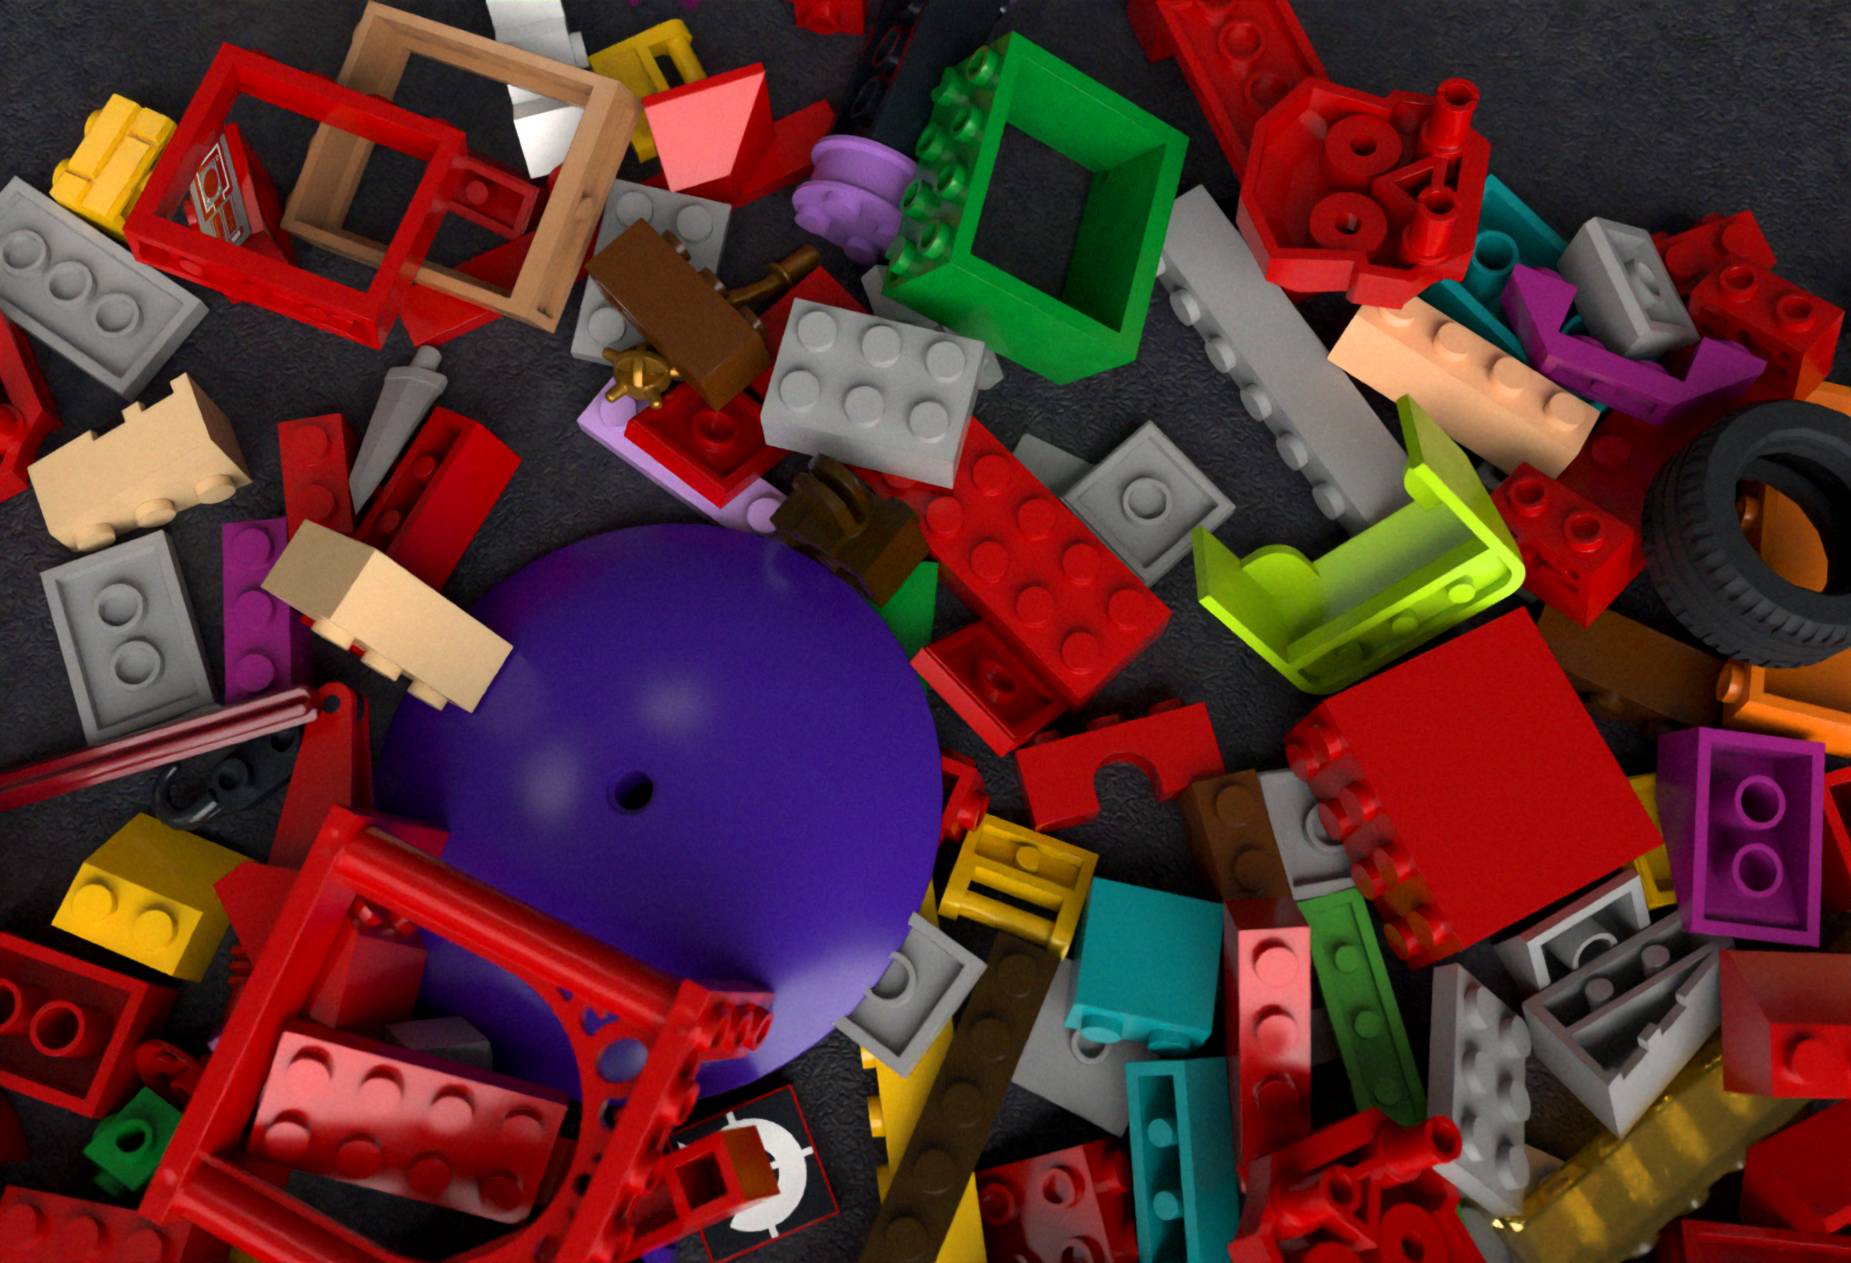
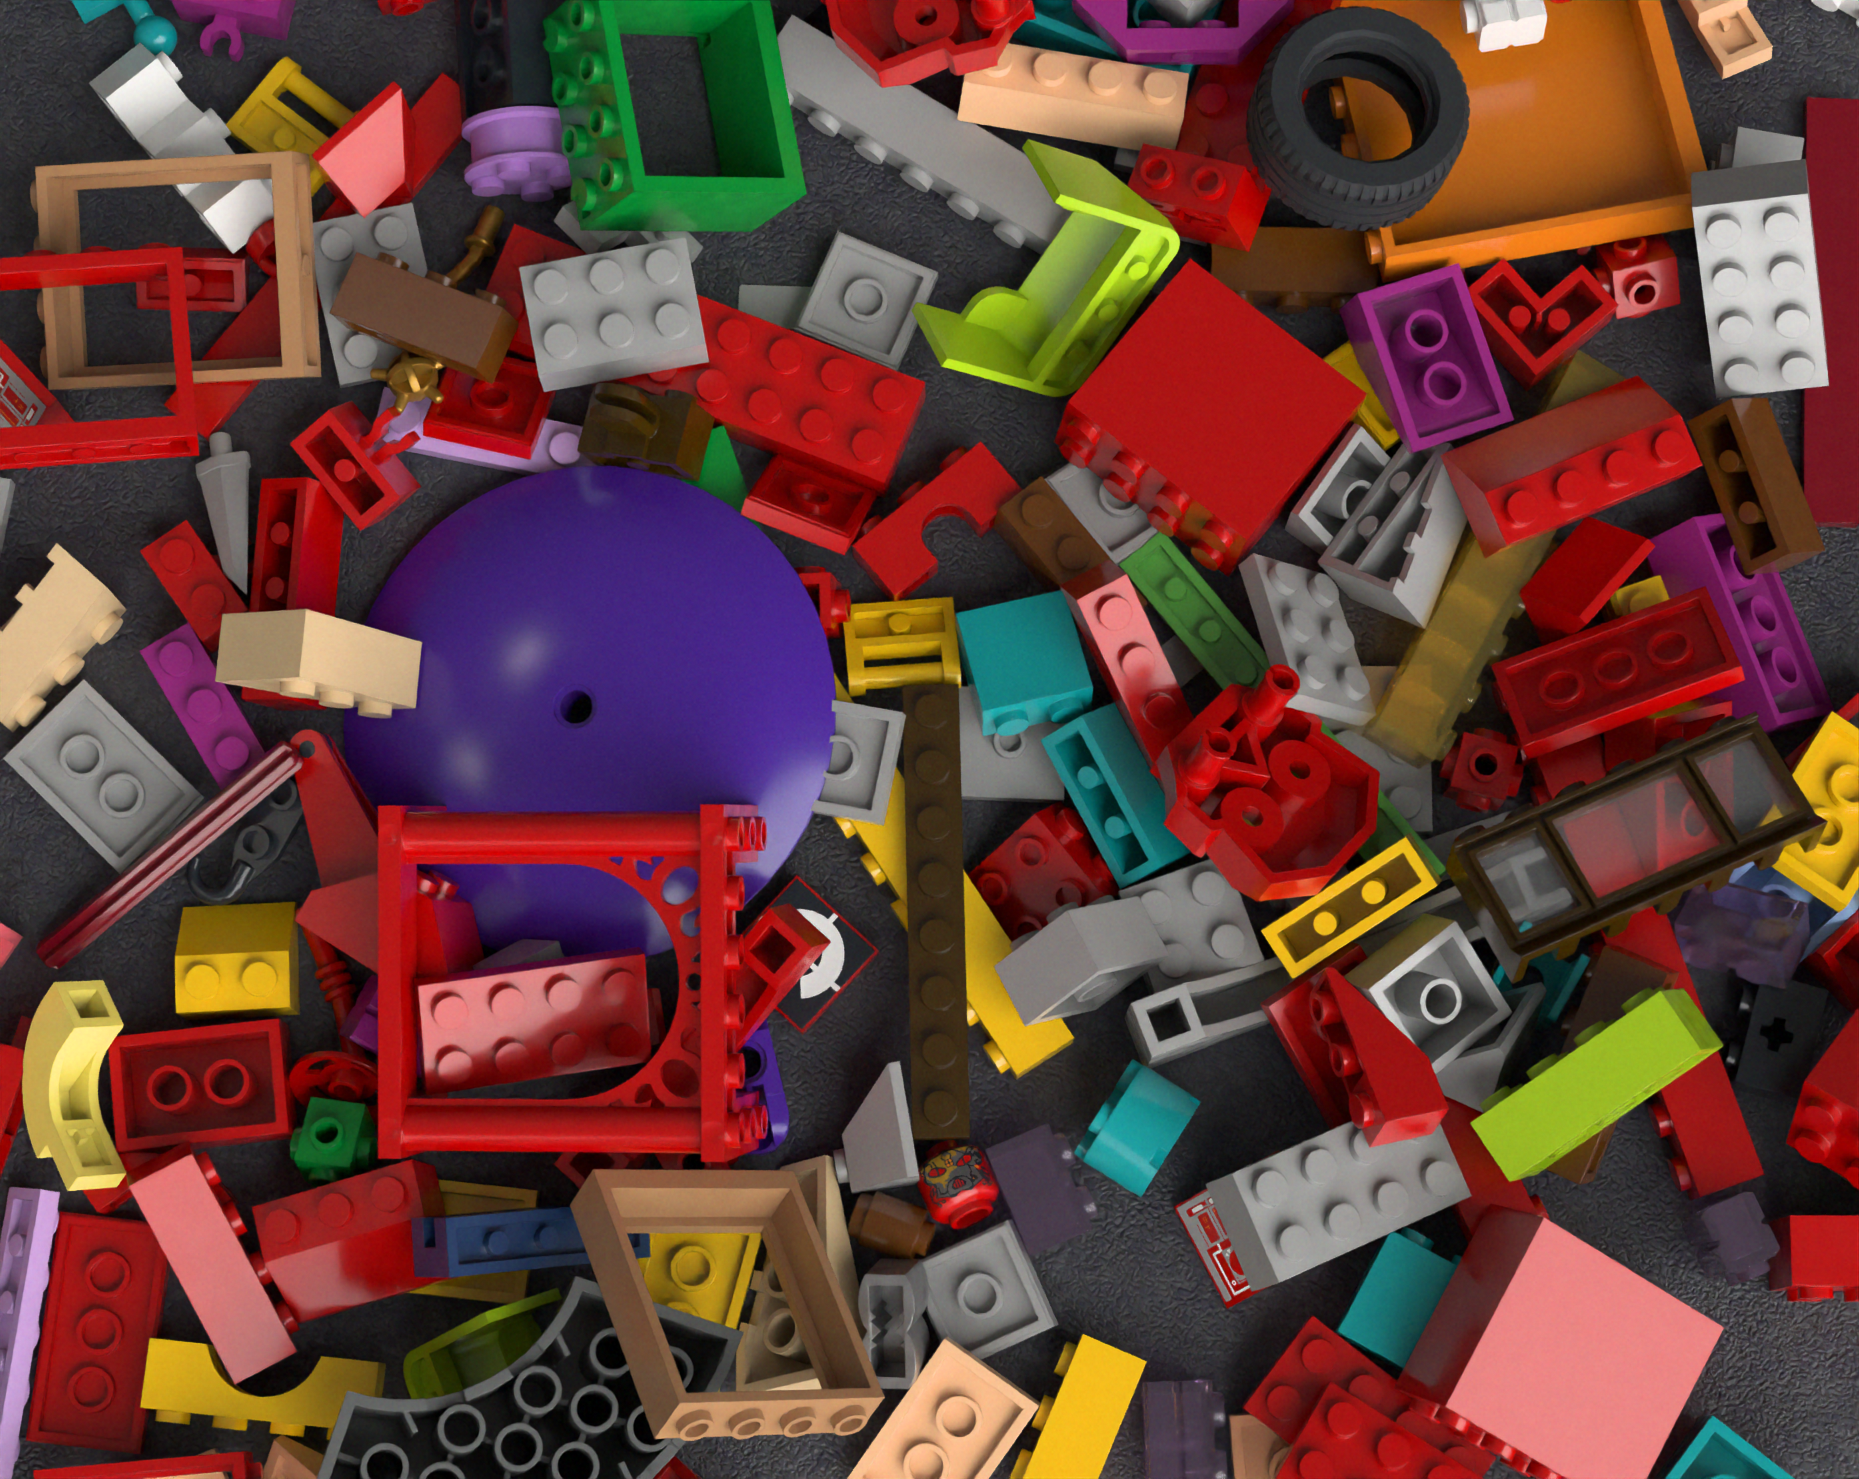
camera: 25 degrees left, 5 degrees up
(544, 433) = (358, 463): none -> red brick

